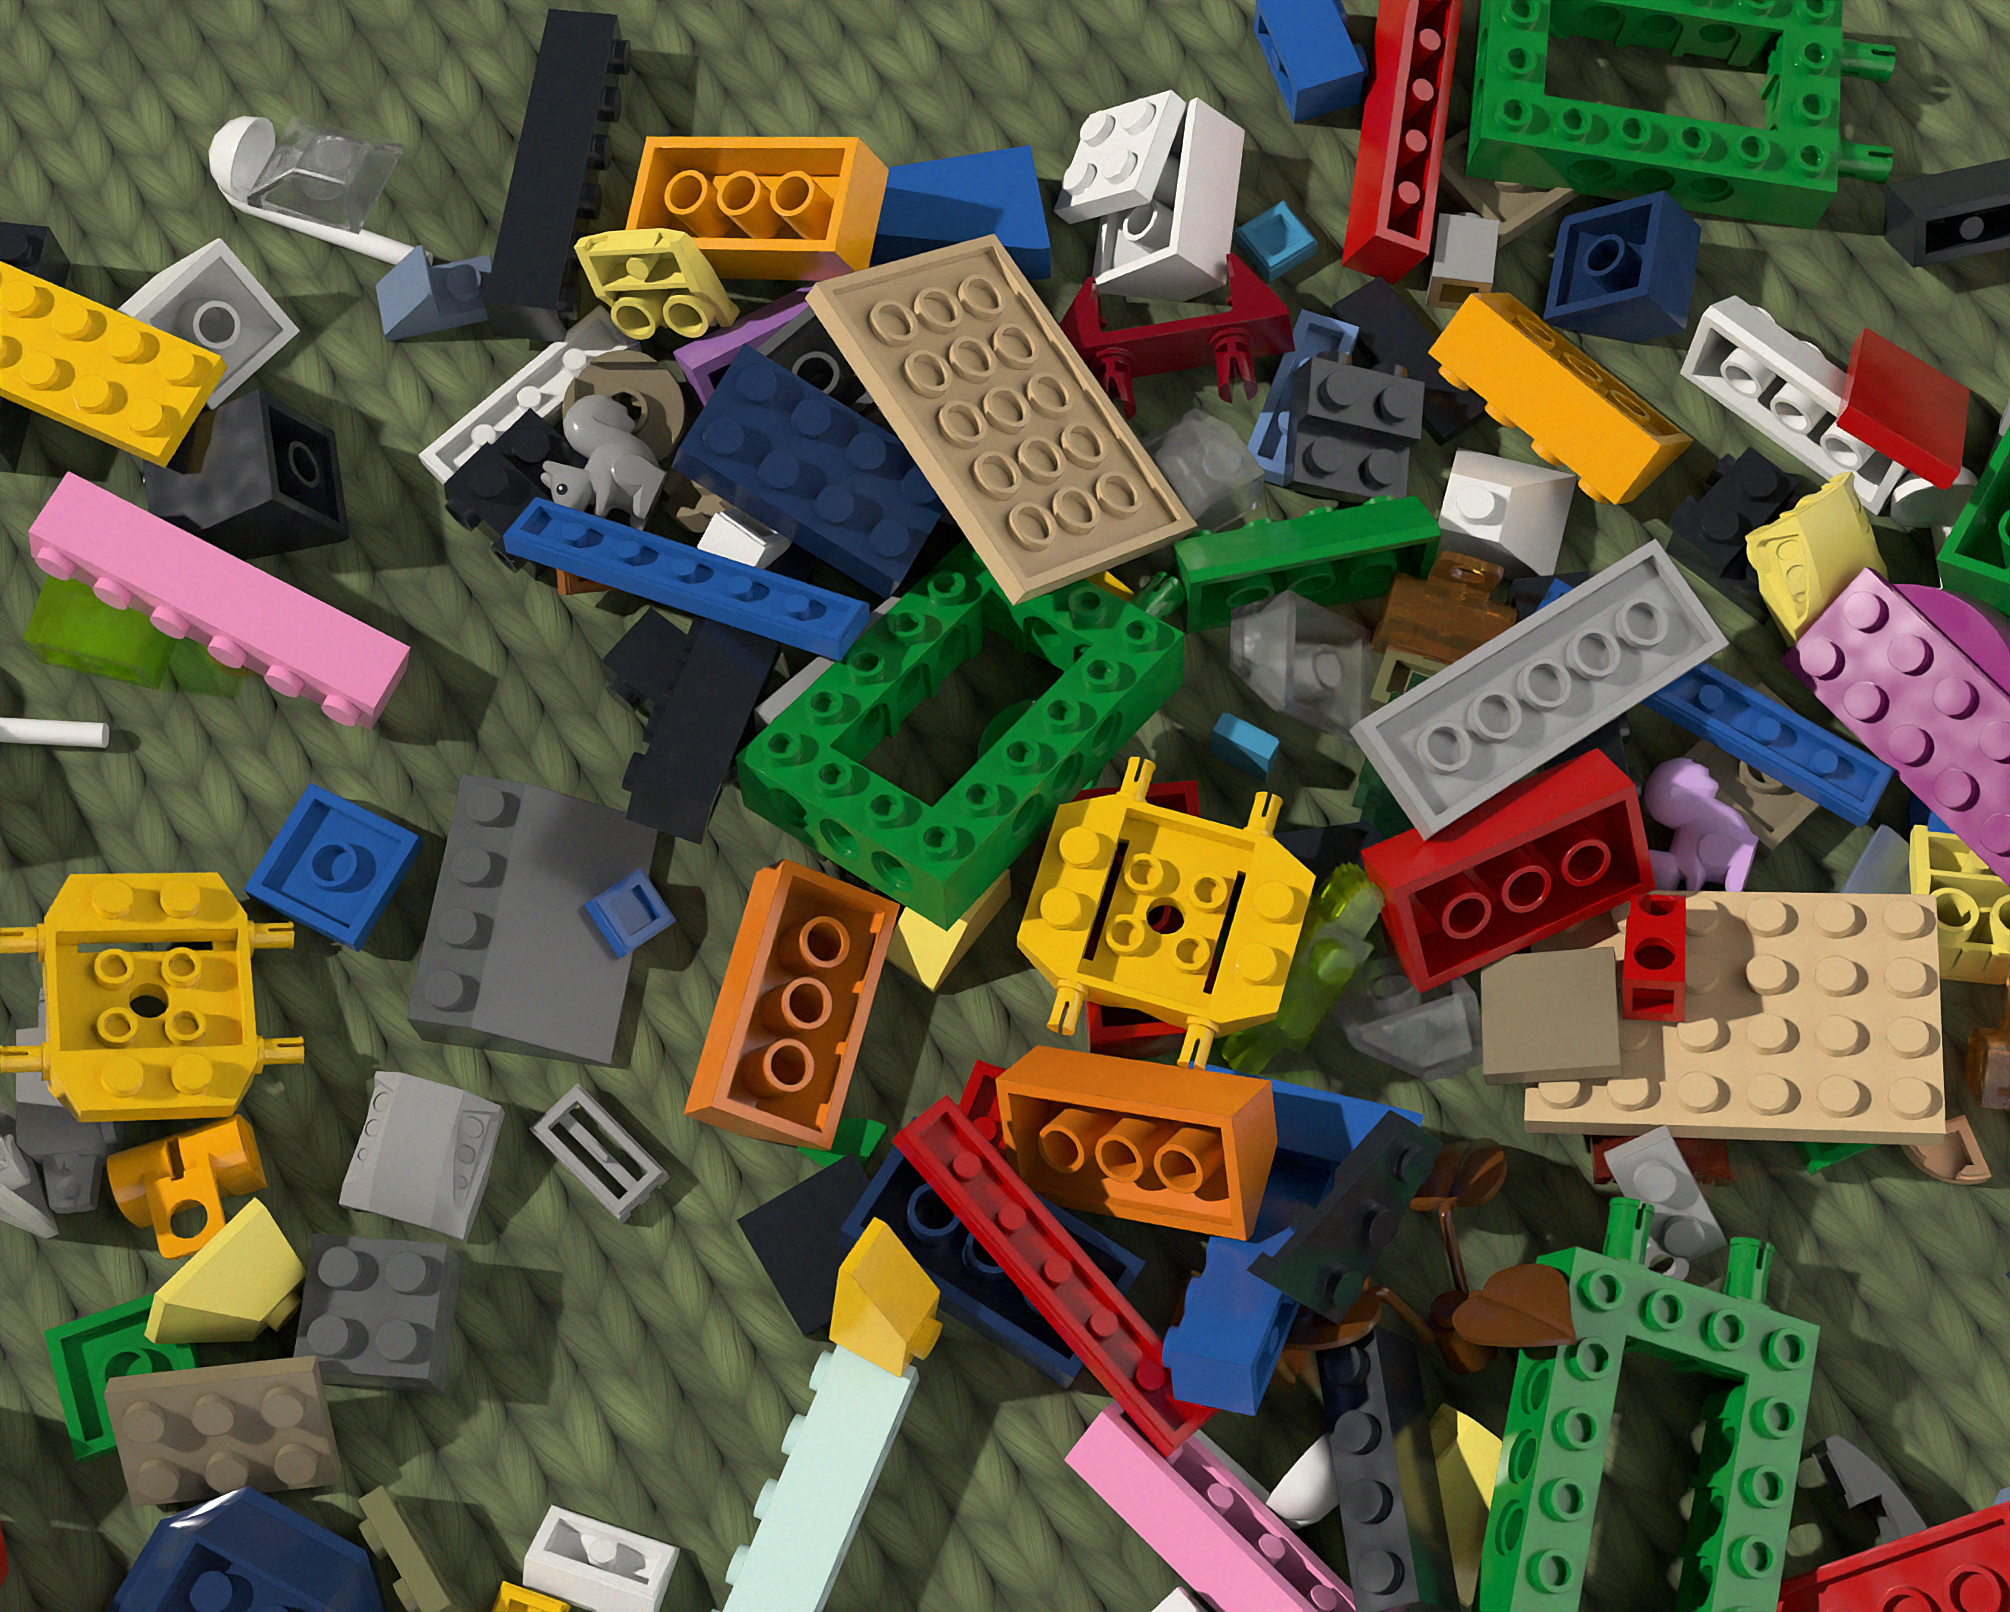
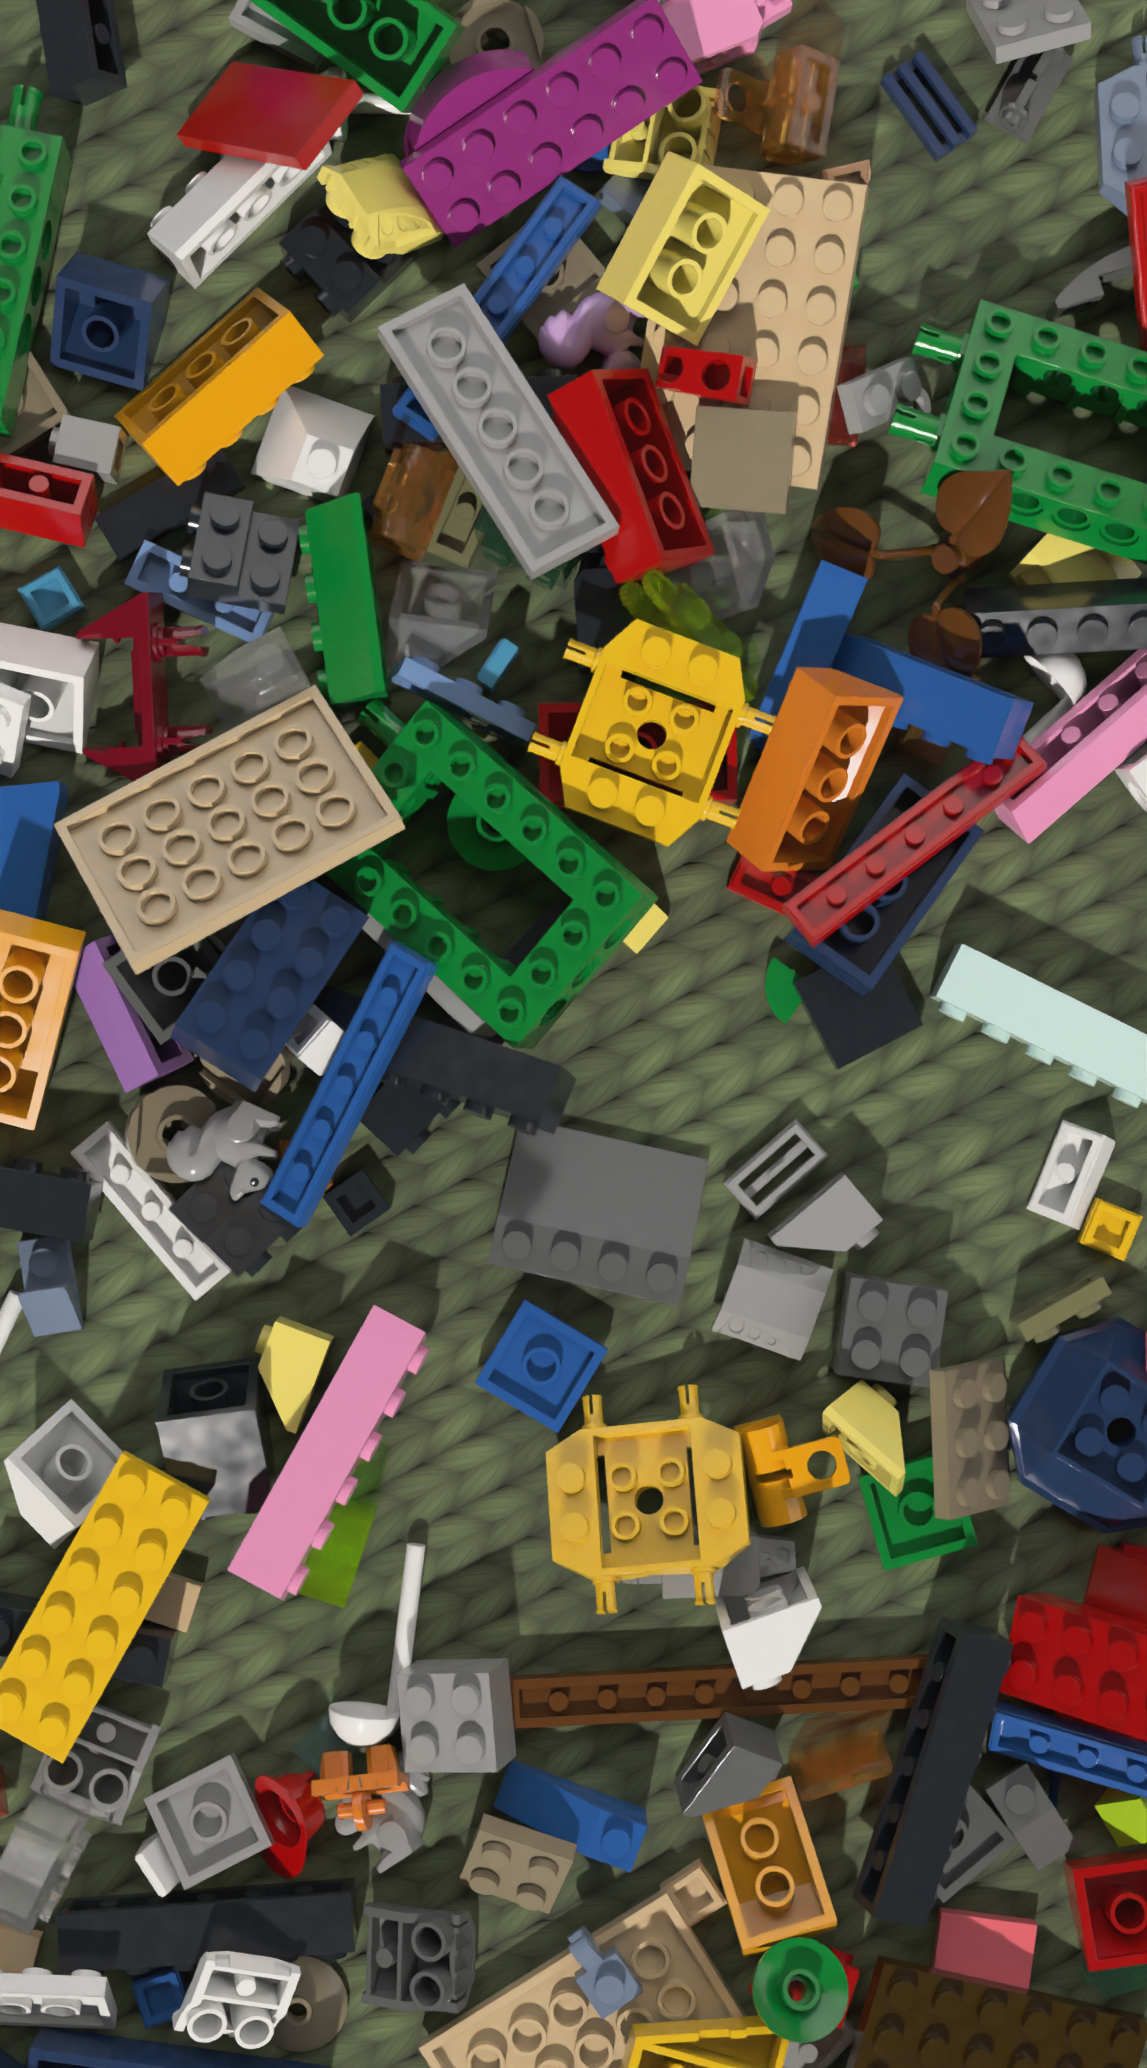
camera: 85 degrees left, 20 degrees up
(45, 456) = (175, 1602): none -> tan tile
(337, 564) = (292, 1366): none -> light yellow slope
(529, 1225) = (830, 1220): none -> light grey slope
(545, 634) = (357, 1202): none -> black tile
(630, 913) = (596, 1140): blue tile -> none
(655, 282) = (70, 1103): light yellow slope -> none
(792, 1007) = (684, 1022): orange slope -> none
(884, 1302) = (927, 959): yellow slope -> none
(1198, 696) = (462, 699): none -> medium blue plate
(1347, 1232) = (918, 628): black wing -> none
(1818, 907) = (683, 247): none -> light yellow slope

